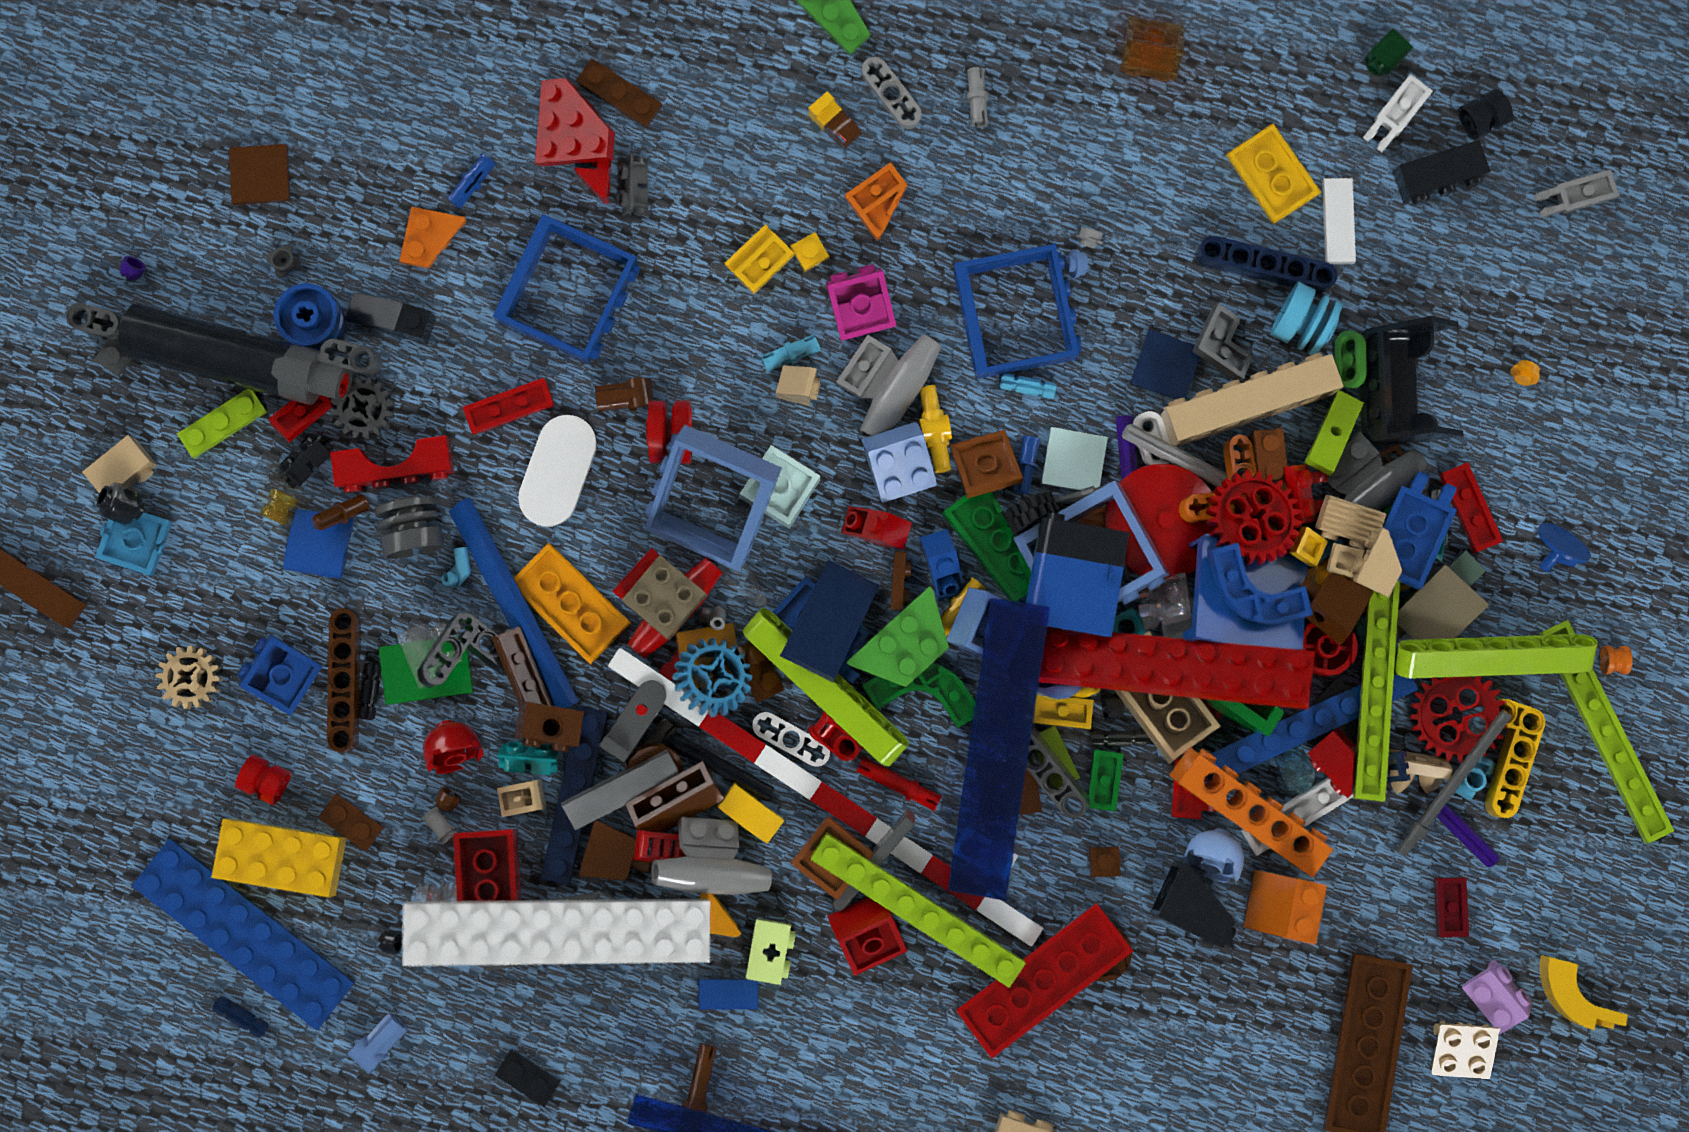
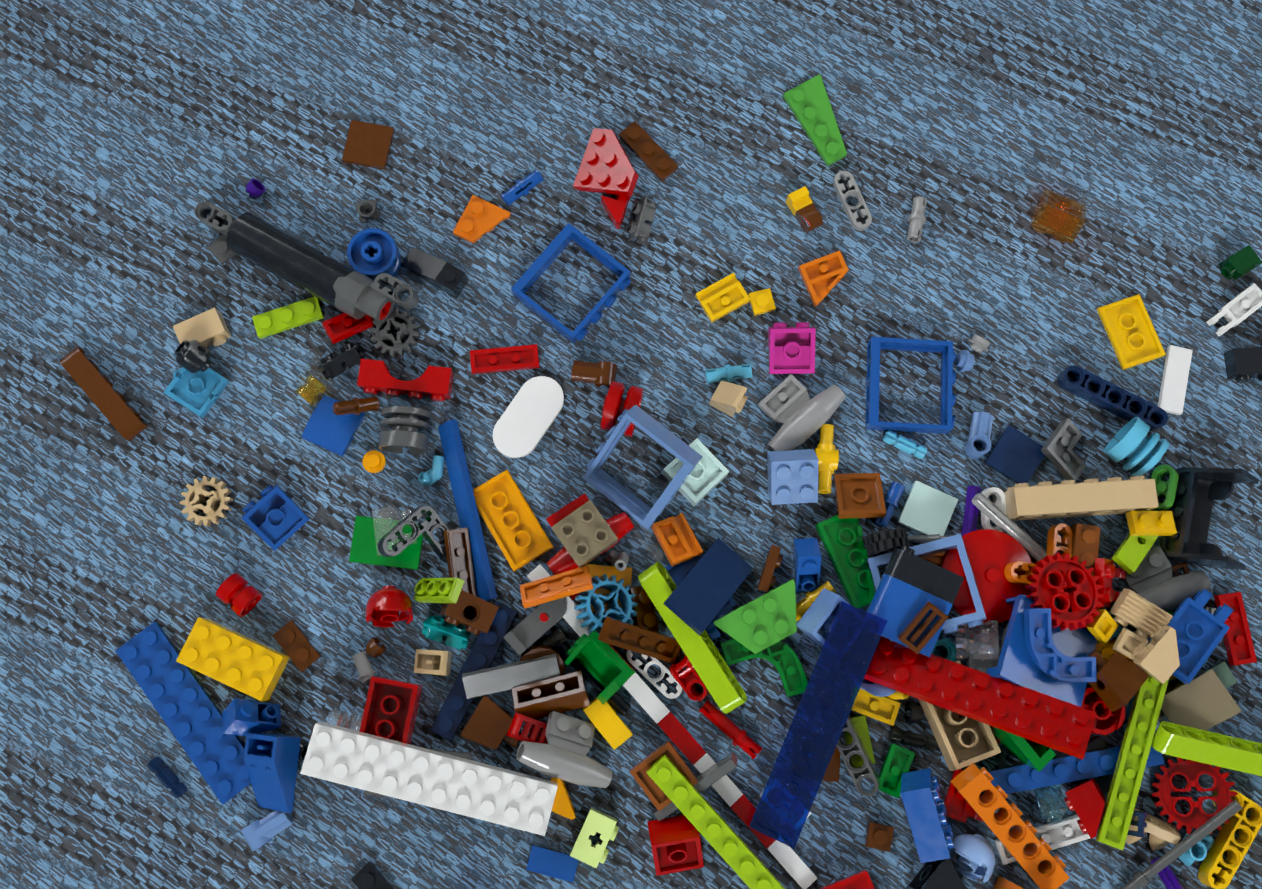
camera: 20 degrees right, 5 degrees down
(320, 920) = (250, 716): none -> blue slope
(336, 667) = (323, 546): reddish brown beam -> none
(365, 973) = (272, 768): none -> blue slope
(369, 691) = (339, 548): black axle -> none
(381, 575) = (374, 461): none -> light orange plate
(505, 710) = (438, 590): none -> lime tile
(646, 669) = (556, 587): none -> orange tile
(724, 745) = (601, 663): none -> green panel
(763, 706) = (639, 640): none -> reddish brown plate
(778, 574) = (677, 539): none -> orange plate
(876, 527) = (762, 522): red slope -> none
(1082, 601) = (928, 605): none -> reddish brown tile
(1115, 349) = (979, 433): none -> medium blue piece
(1150, 821) = (927, 815): none -> blue brick
(1343, 407) = (1151, 523): none -> yellow plate

